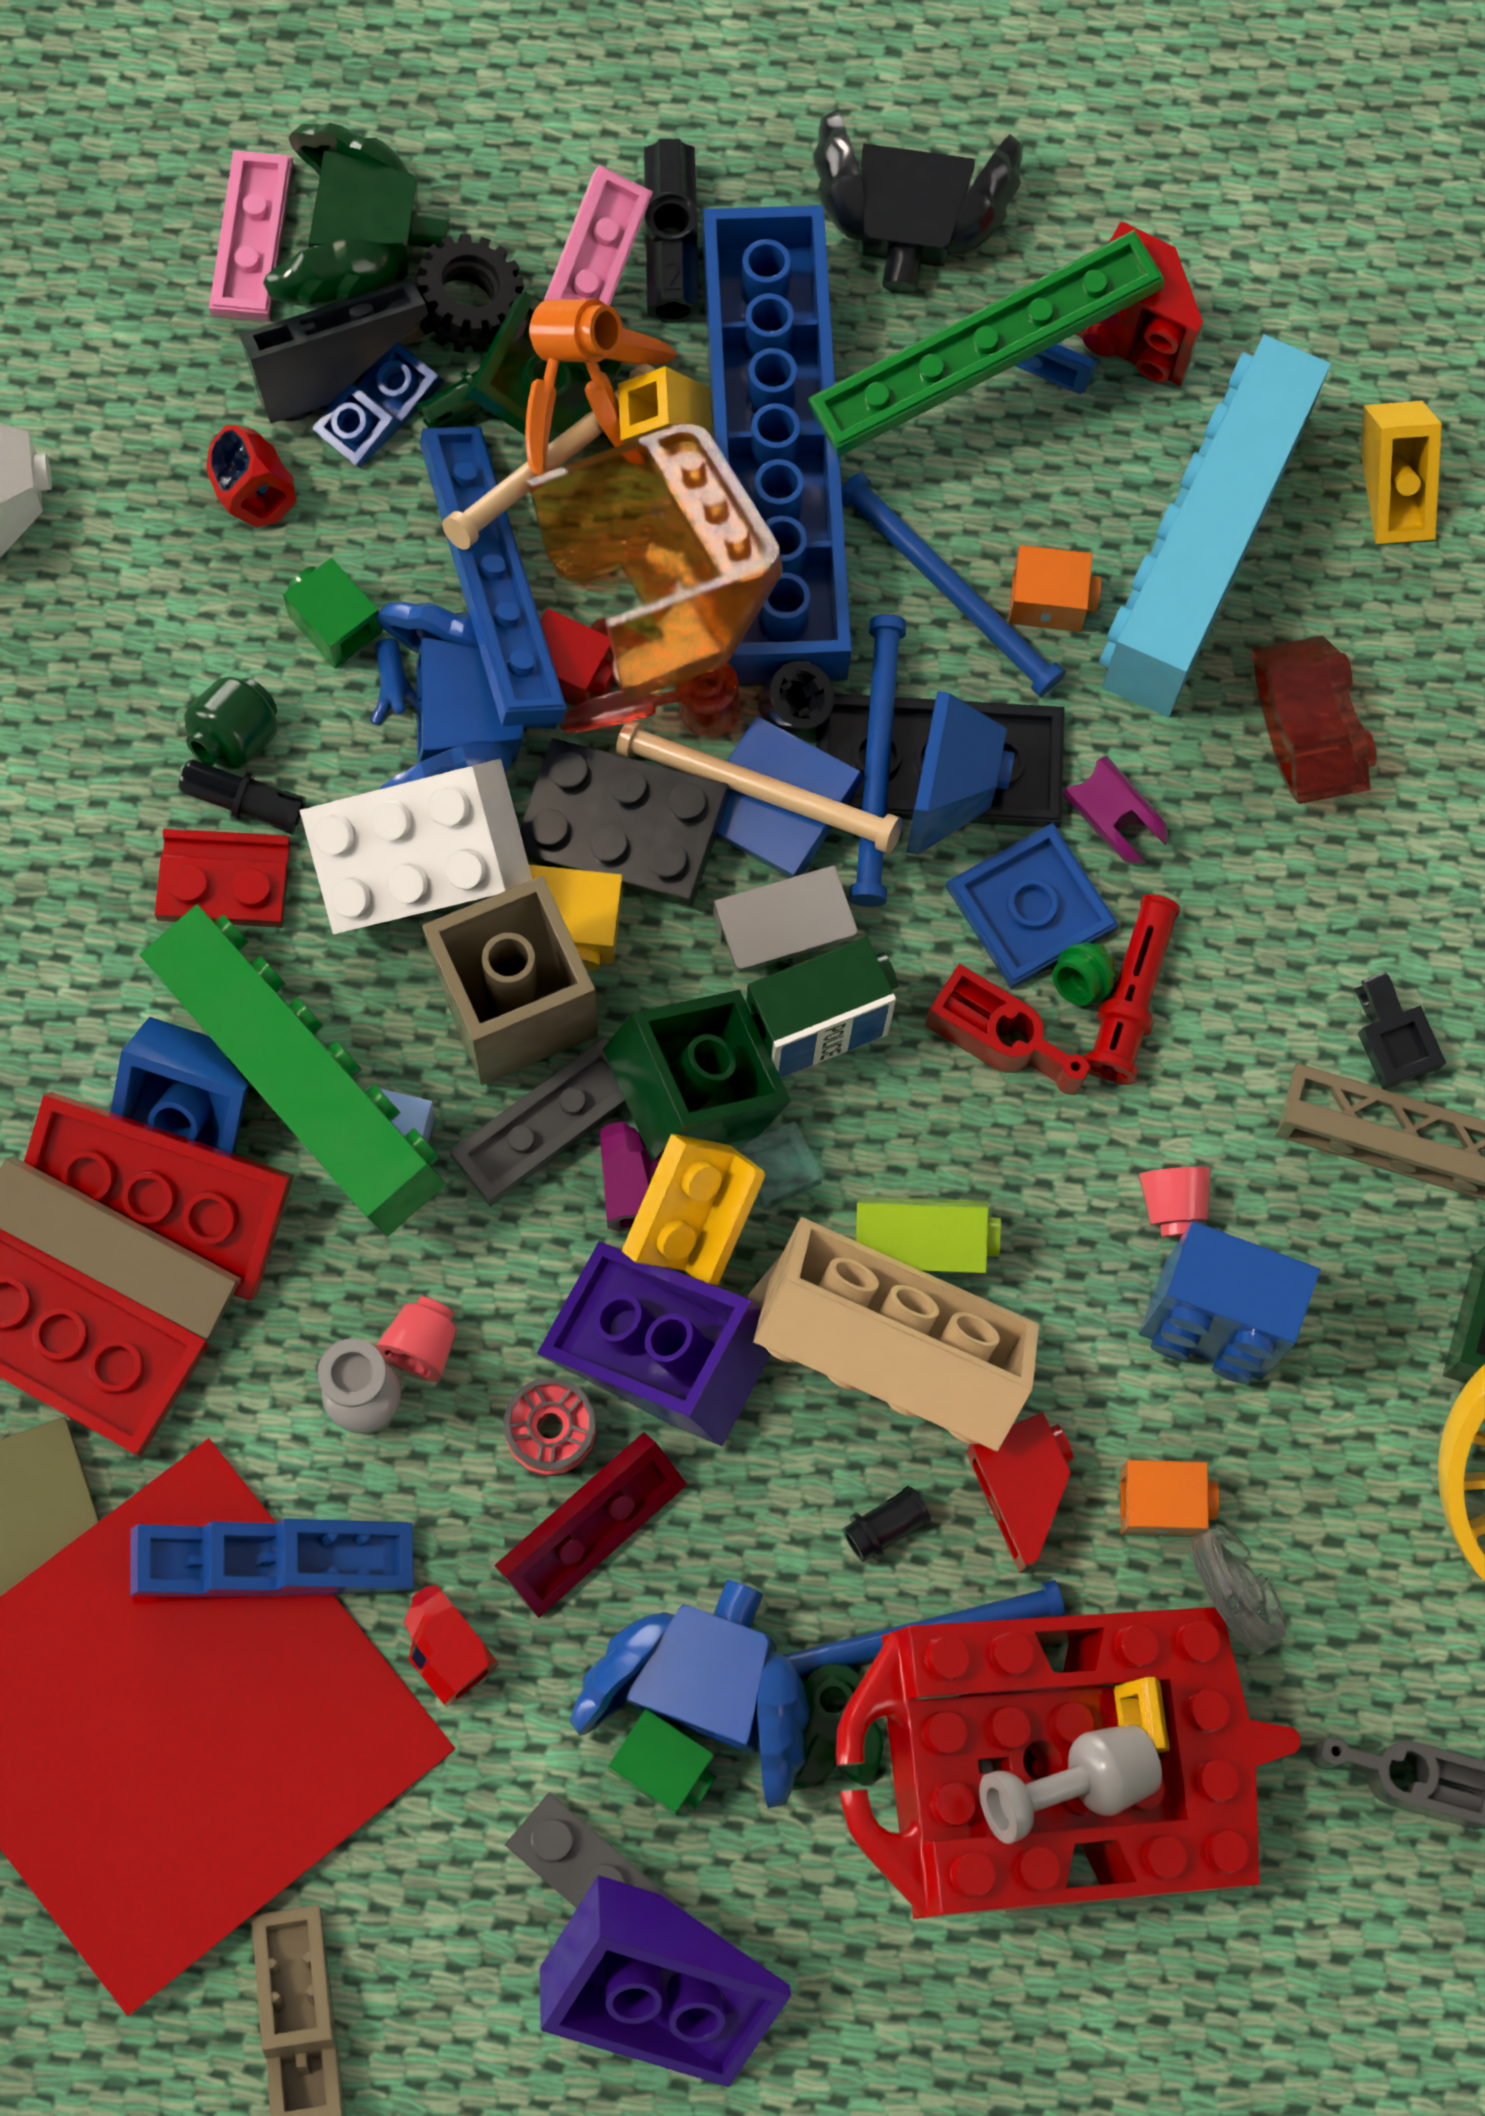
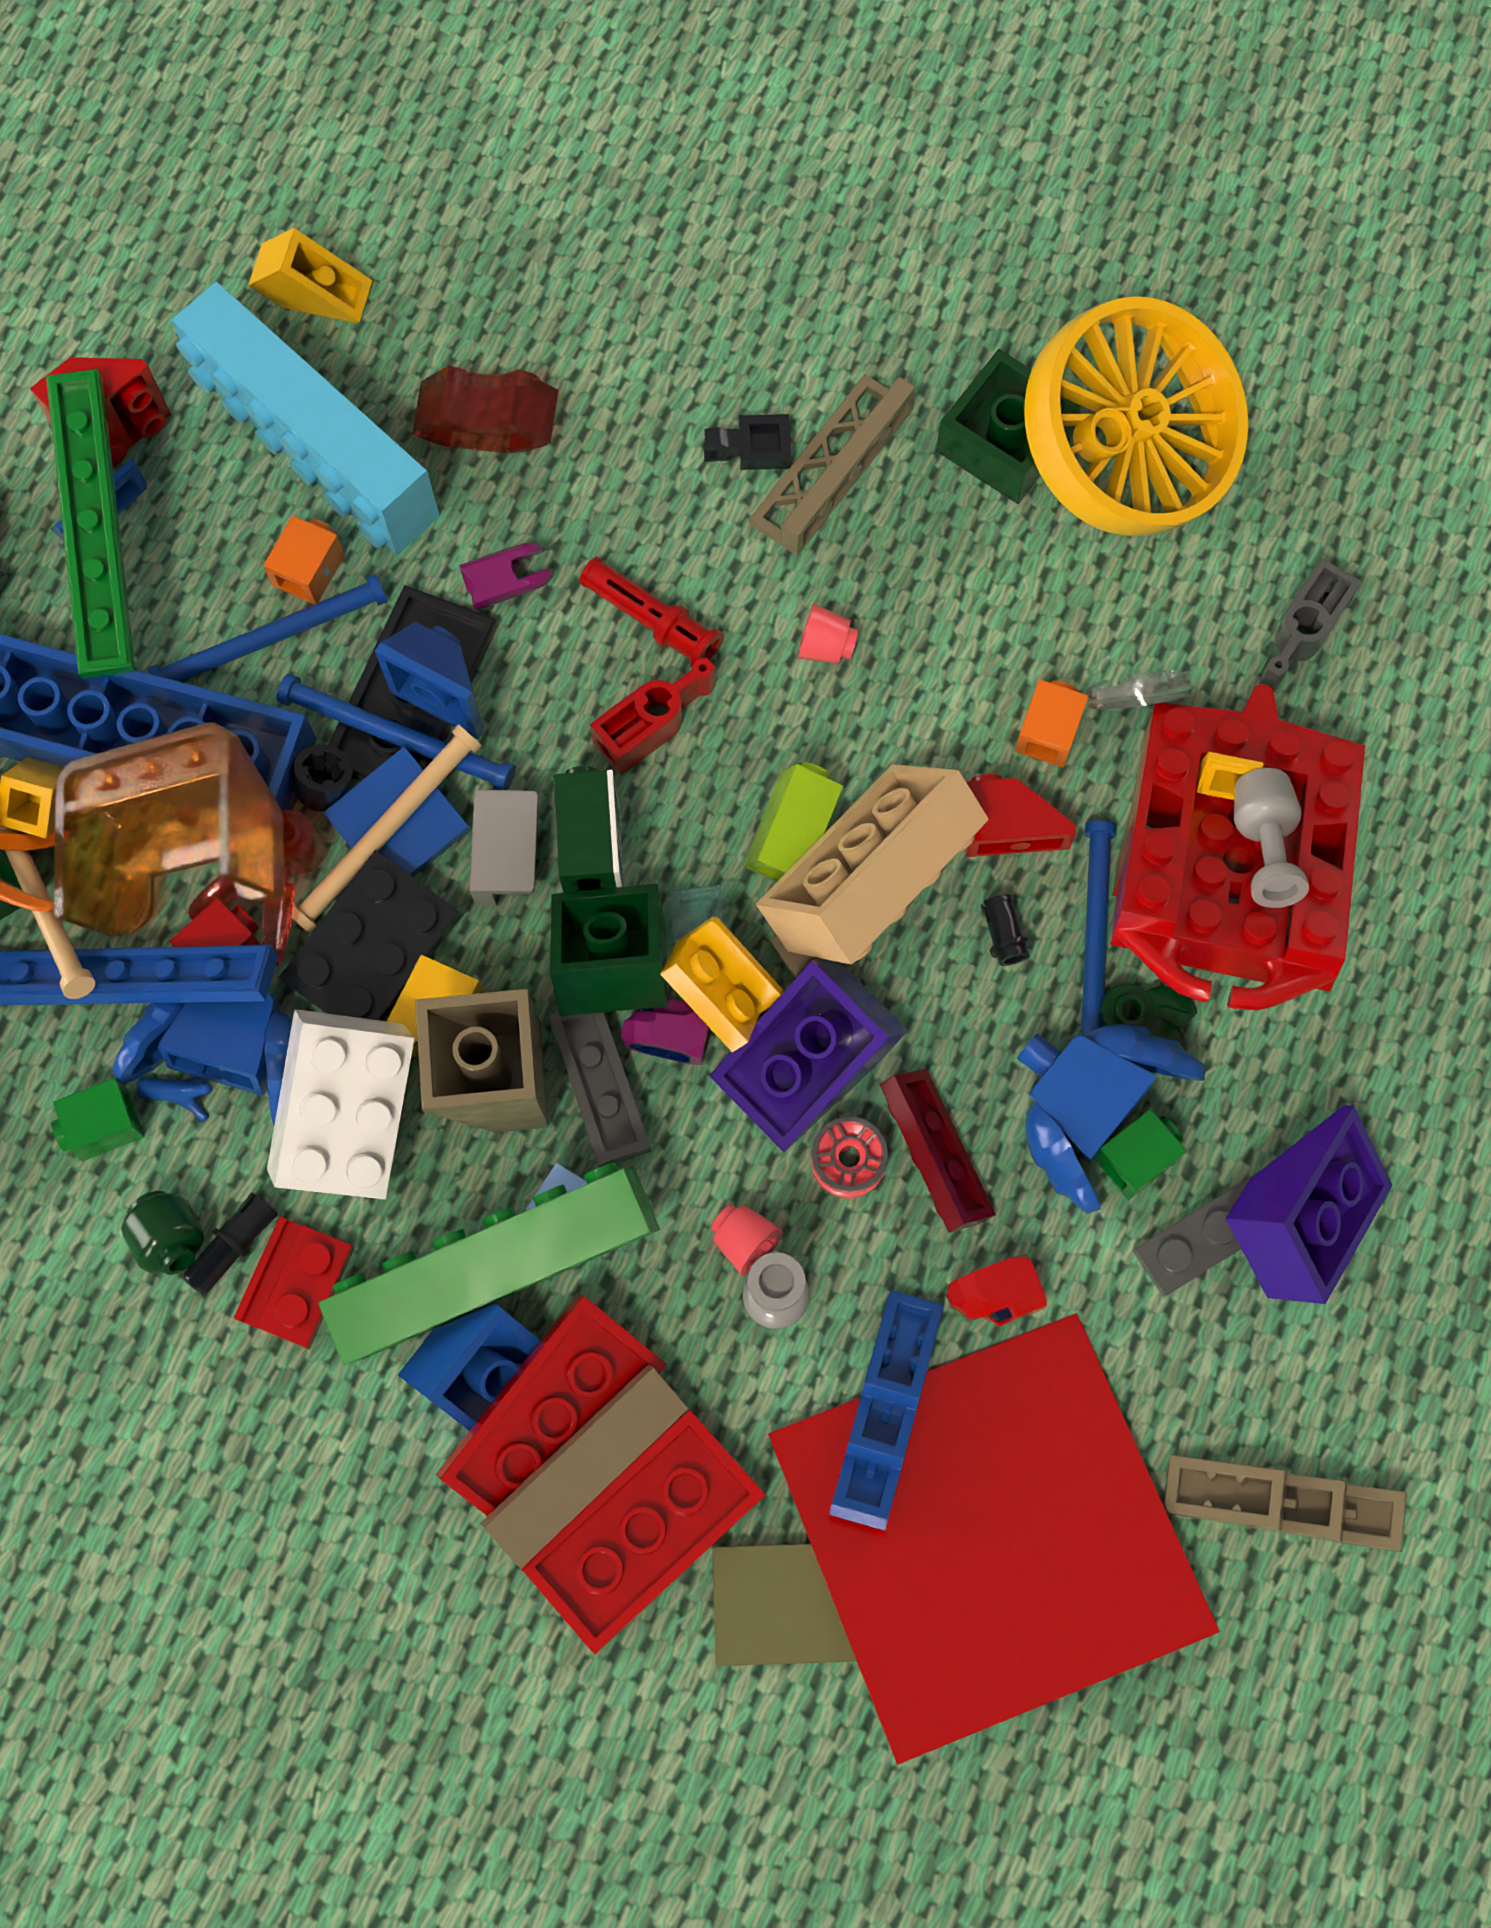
camera: 65 degrees left, 0 degrees up
(1031, 905) = (555, 664): blue tile -> none
(1084, 973) = (626, 642): green plate -> none
(1228, 1303) = (930, 616): blue brick -> none

